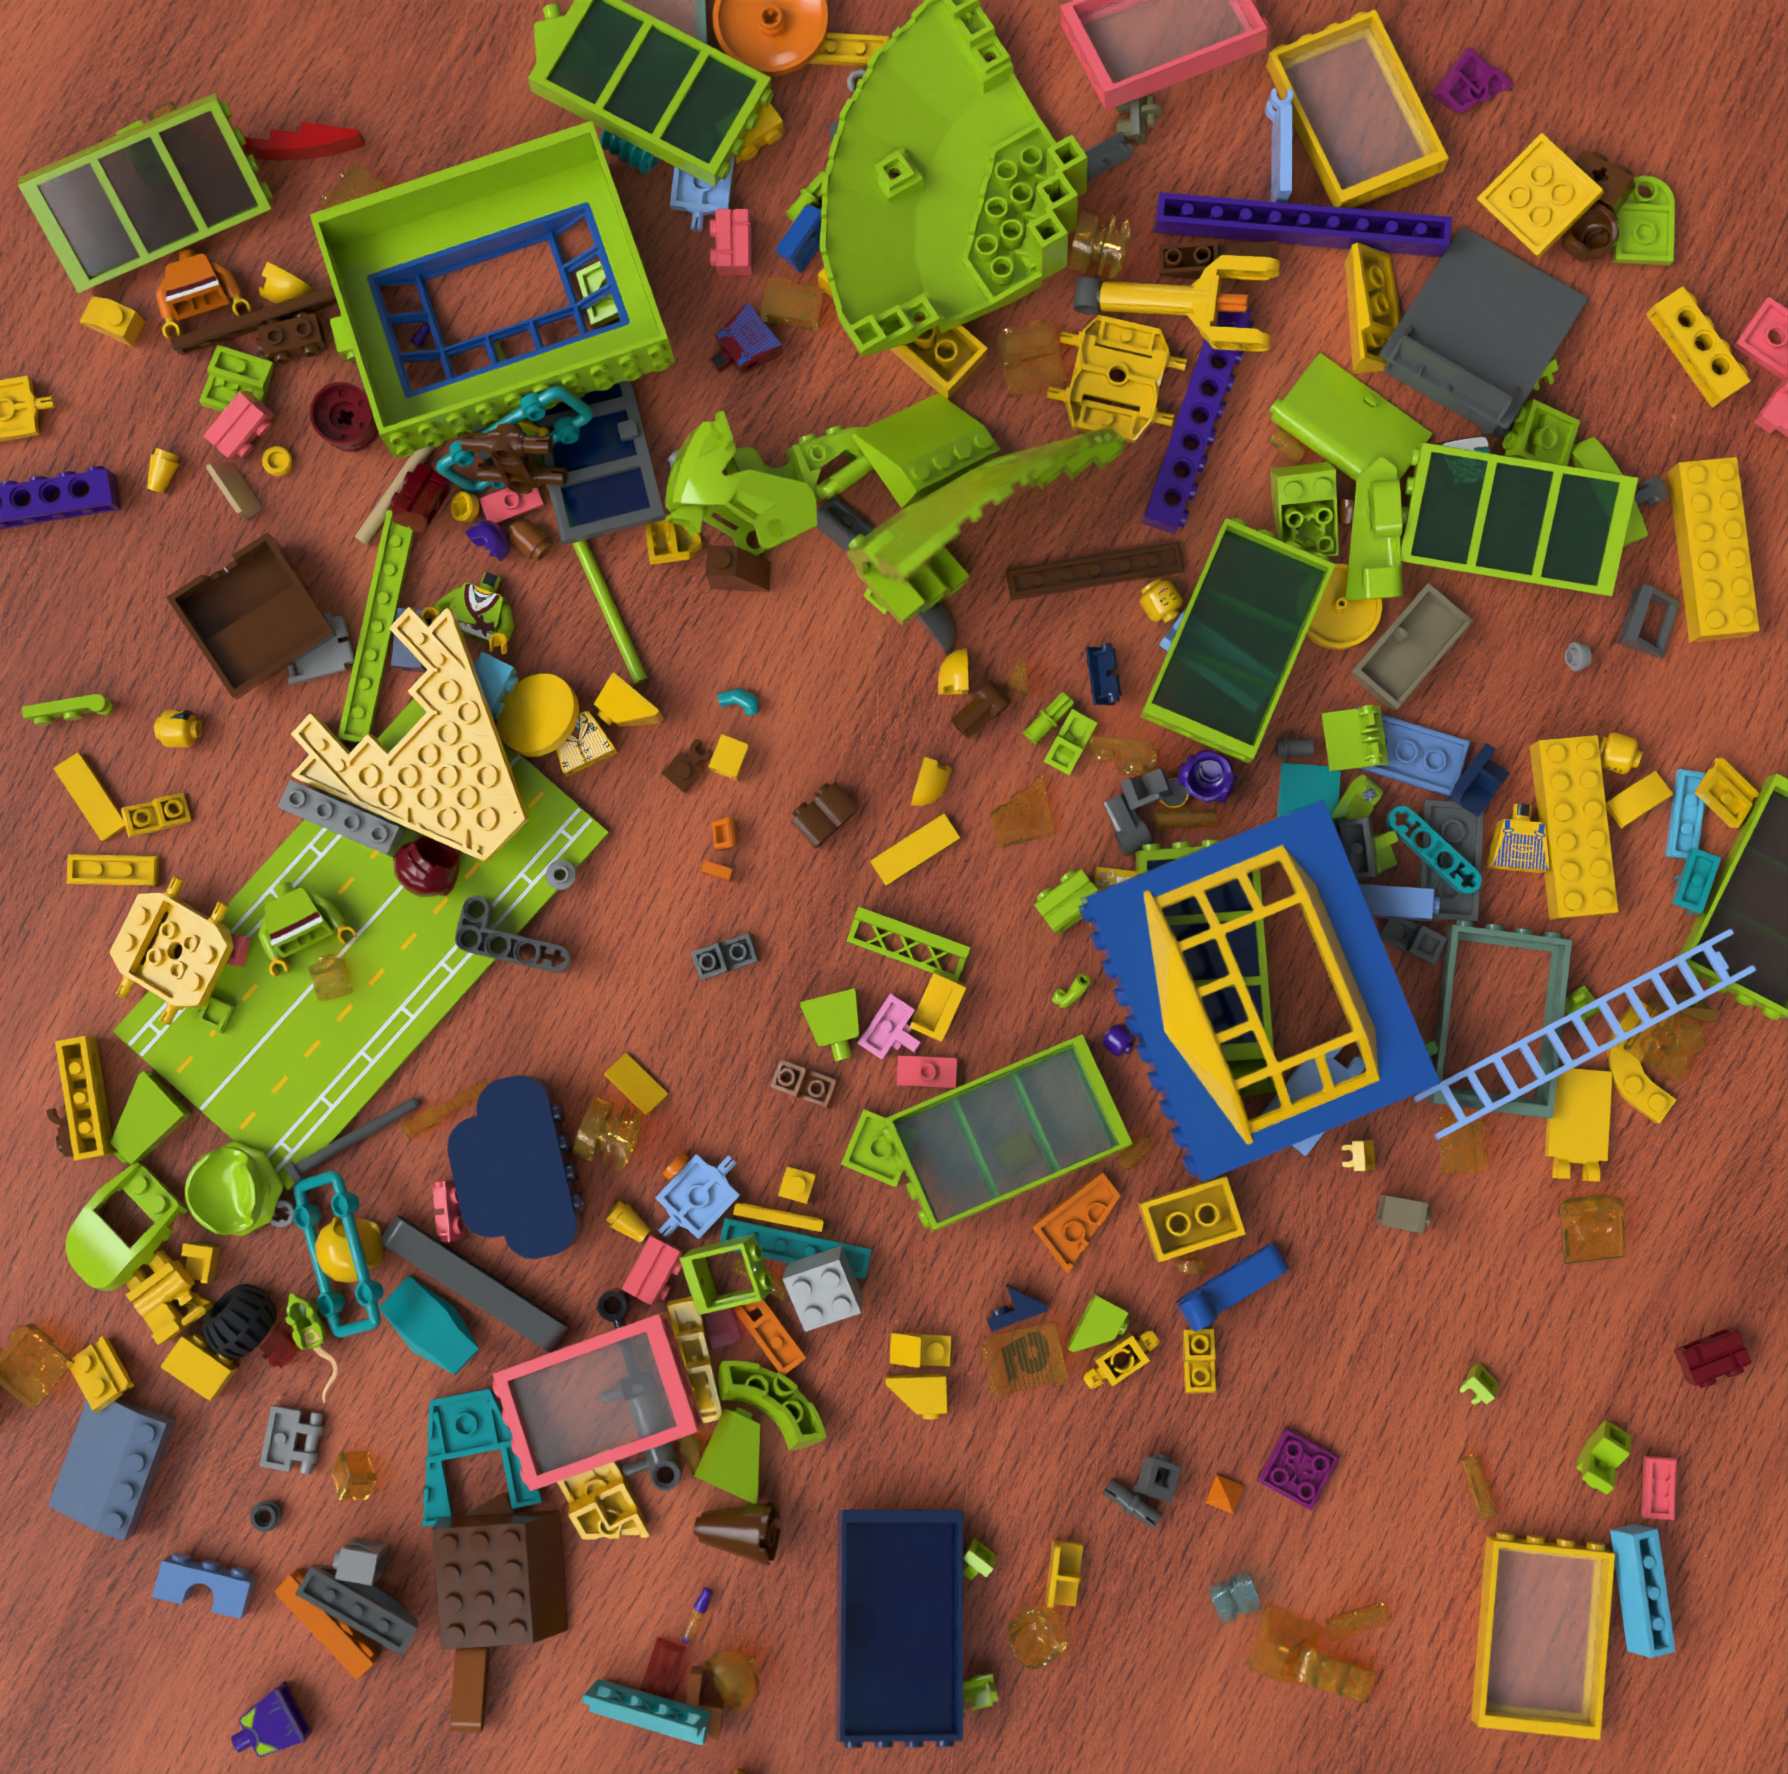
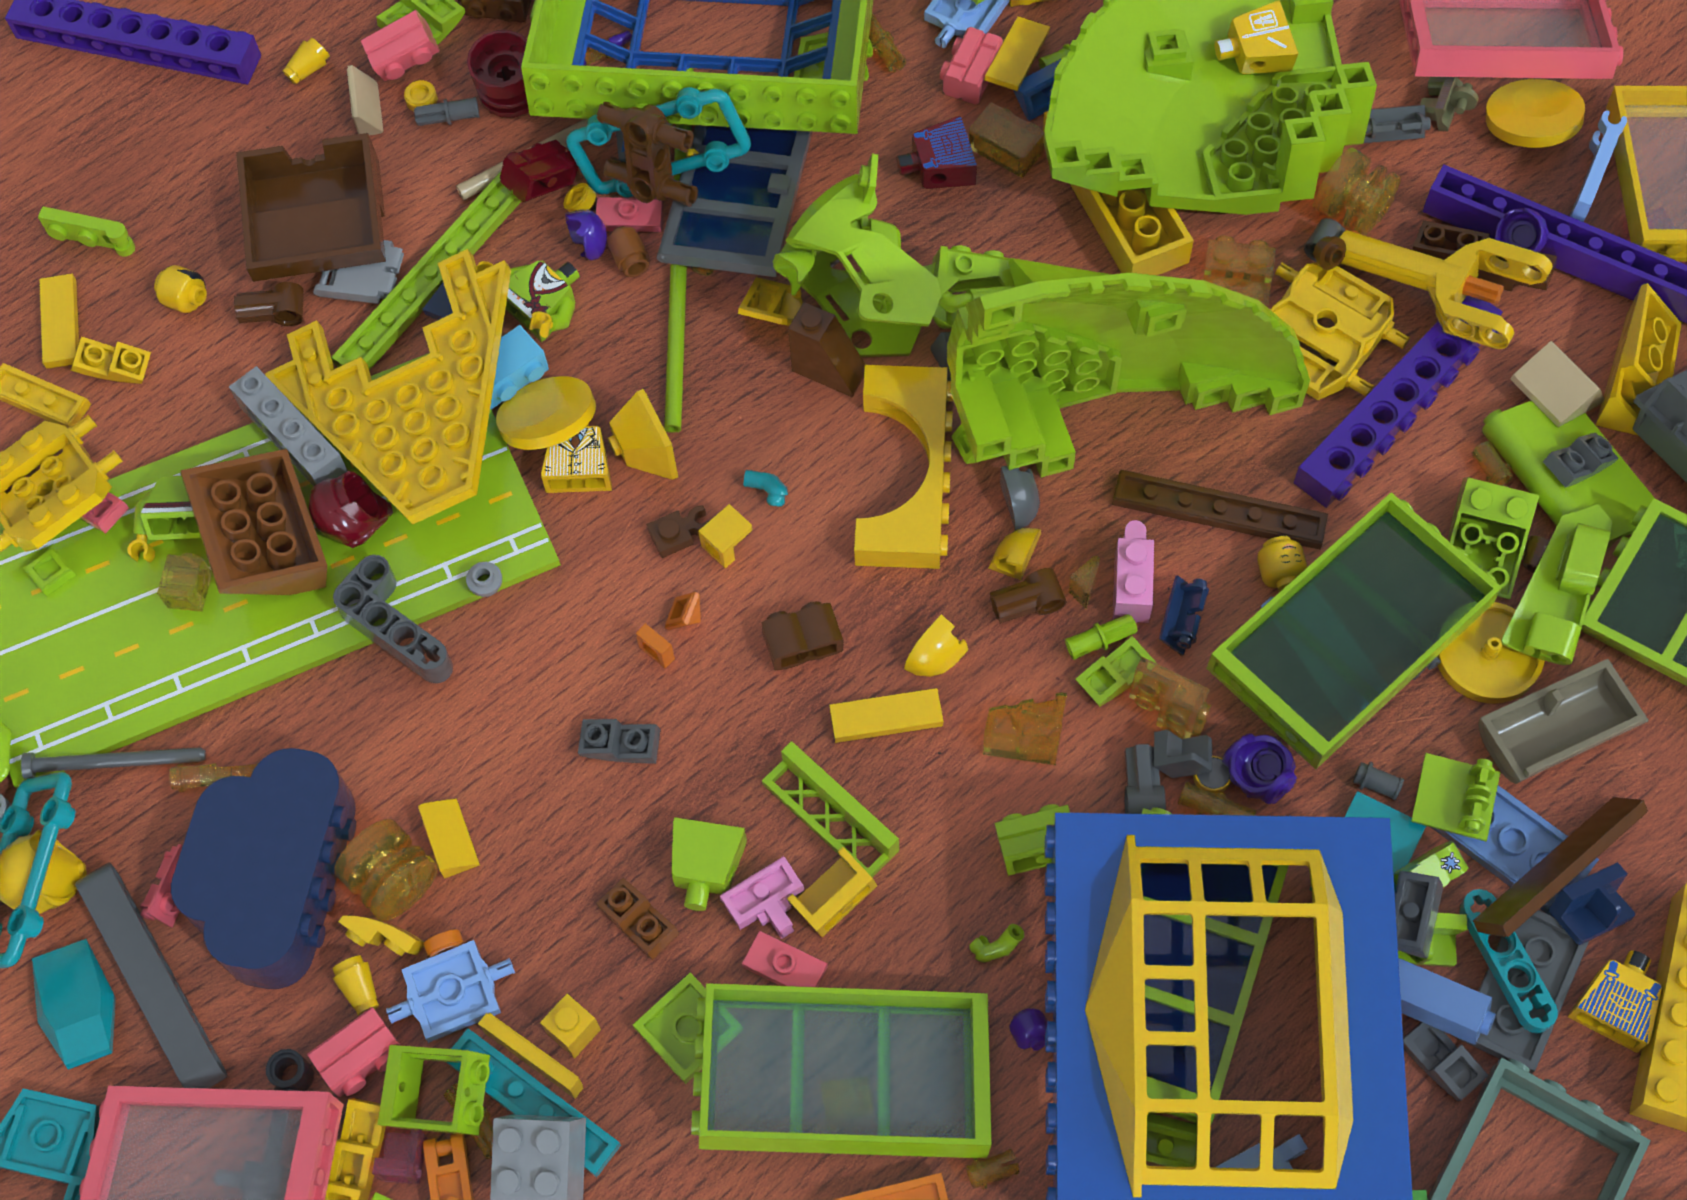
camera: 30 degrees right, 20 degrees down
(267, 708) = (279, 305): none -> reddish brown piece
(309, 469) = (446, 111): none -> dark grey axle
(365, 914) = (256, 526): none -> dark orange slope
(613, 1181) = (373, 932): none -> yellow slope
(652, 253) = (884, 46): none -> clear yellow pin
(766, 216) = (1017, 53): none -> yellow piece
(827, 578) = (913, 531): none -> yellow arch
(967, 131) = (1260, 41): none -> yellow torso
(1053, 657) = (1134, 574): none -> bright pink brick
(1098, 312) = (1329, 252): none -> reddish brown plate
(1213, 104) = (1535, 113): none -> yellow piece
(1245, 237) = (1523, 229): none -> dark purple hair
(1314, 358) = (1557, 385): none -> tan slope
(1354, 419) = (1581, 459): none -> dark grey slope
(1448, 764) = (1560, 866): none -> reddish brown tile

